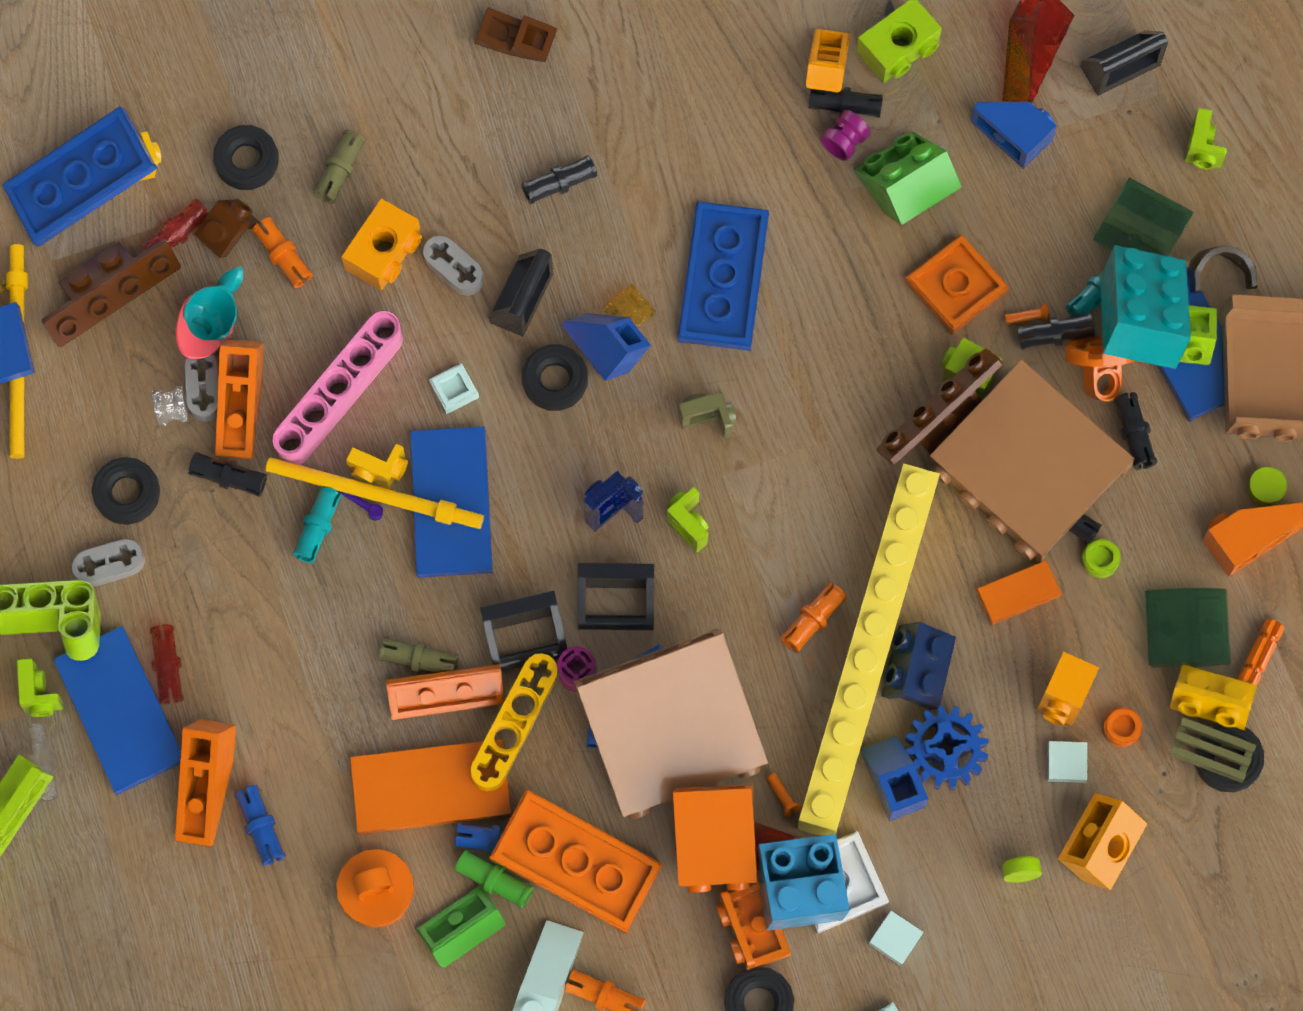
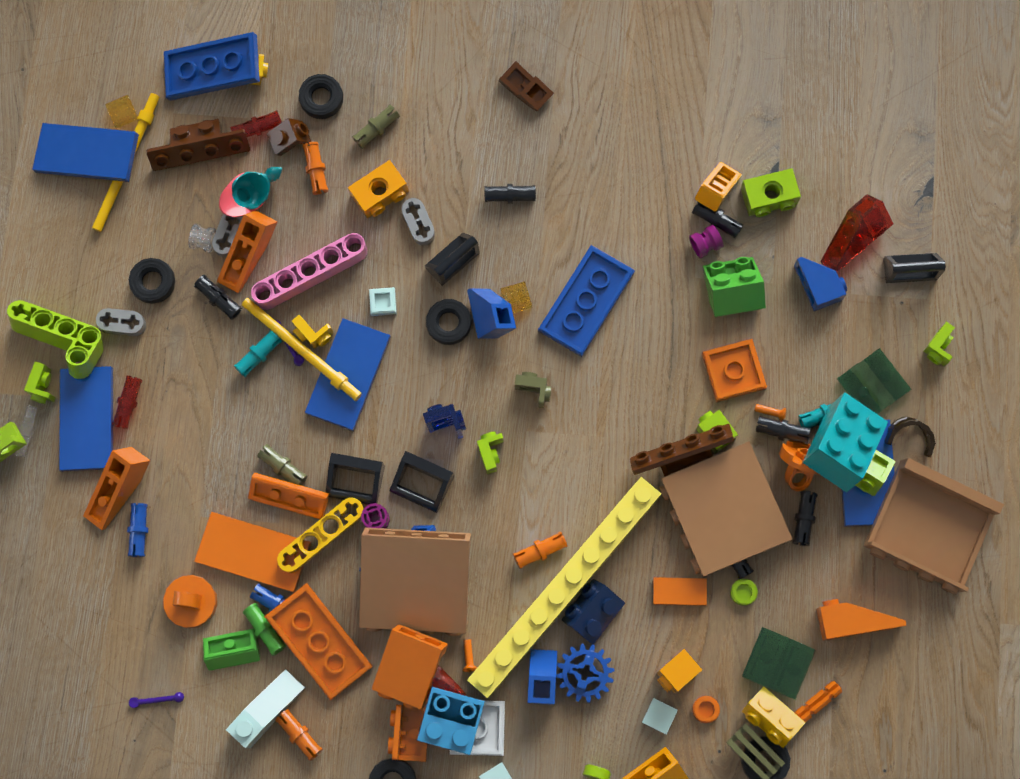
camera: 30 degrees right, 5 degrees up
(1267, 486) = (875, 592): lime tile -> none

